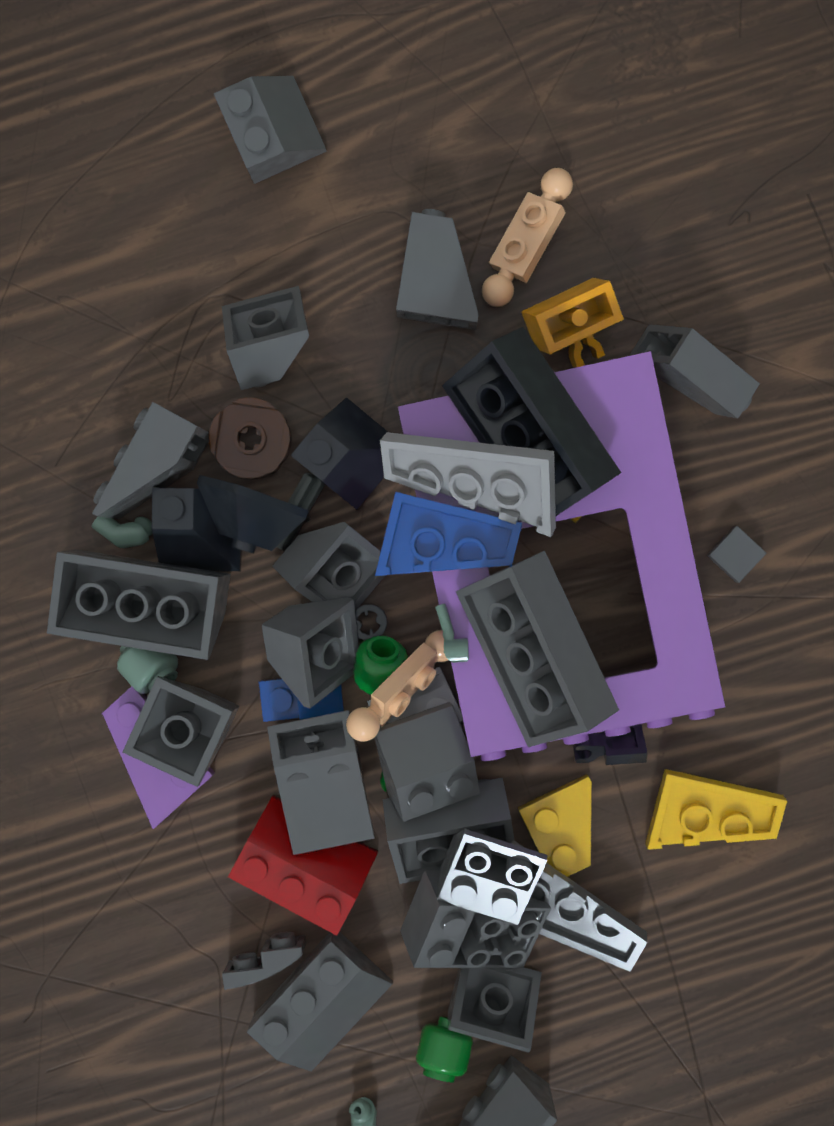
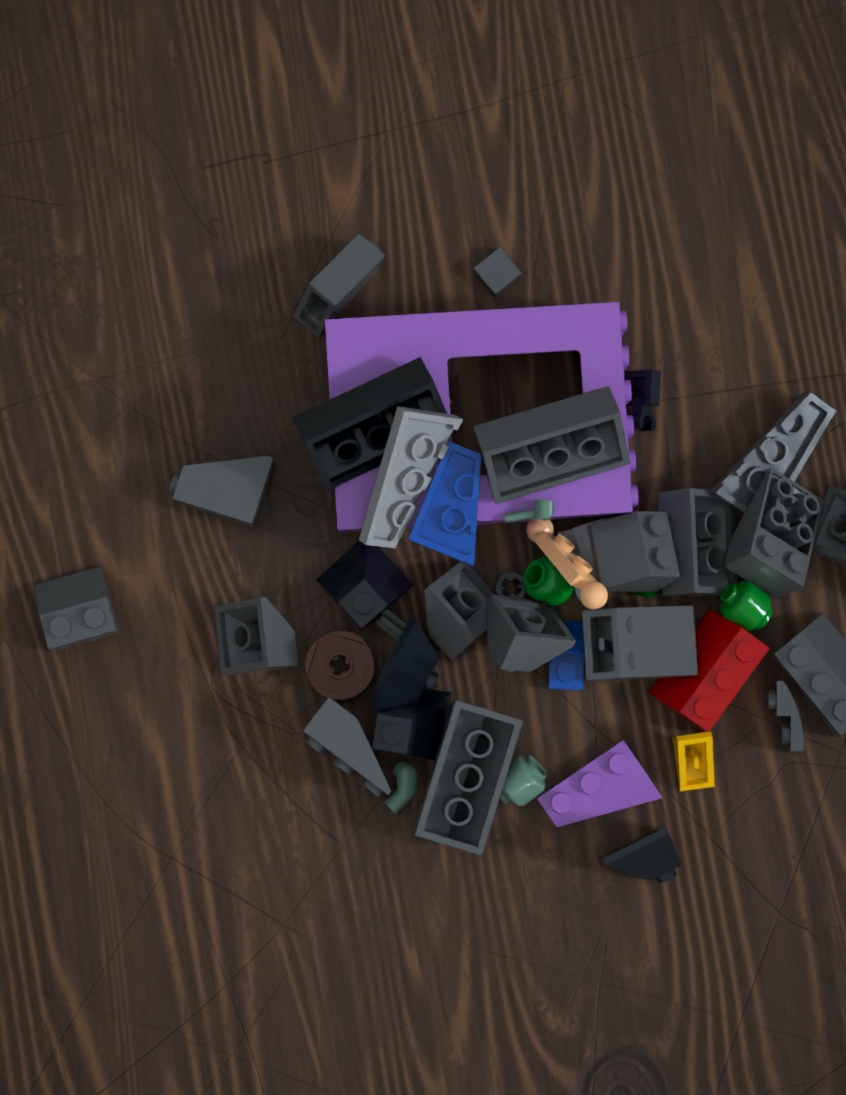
camera: 85 degrees left, 5 degrees down
(78, 815) = (646, 857): none -> black slope
(180, 729) = (579, 755): dark grey slope -> none
(200, 860) = (694, 760): none -> yellow slope
(385, 898) = (746, 605): none -> green head
(489, 875) = (730, 510): slope -> none
(527, 237) = (204, 406): light nougat plate -> none
(562, 825) = (706, 449): yellow wing -> none
(574, 317) = (281, 378): light orange brick -> none
(705, 809) = (709, 327): yellow wing -> none

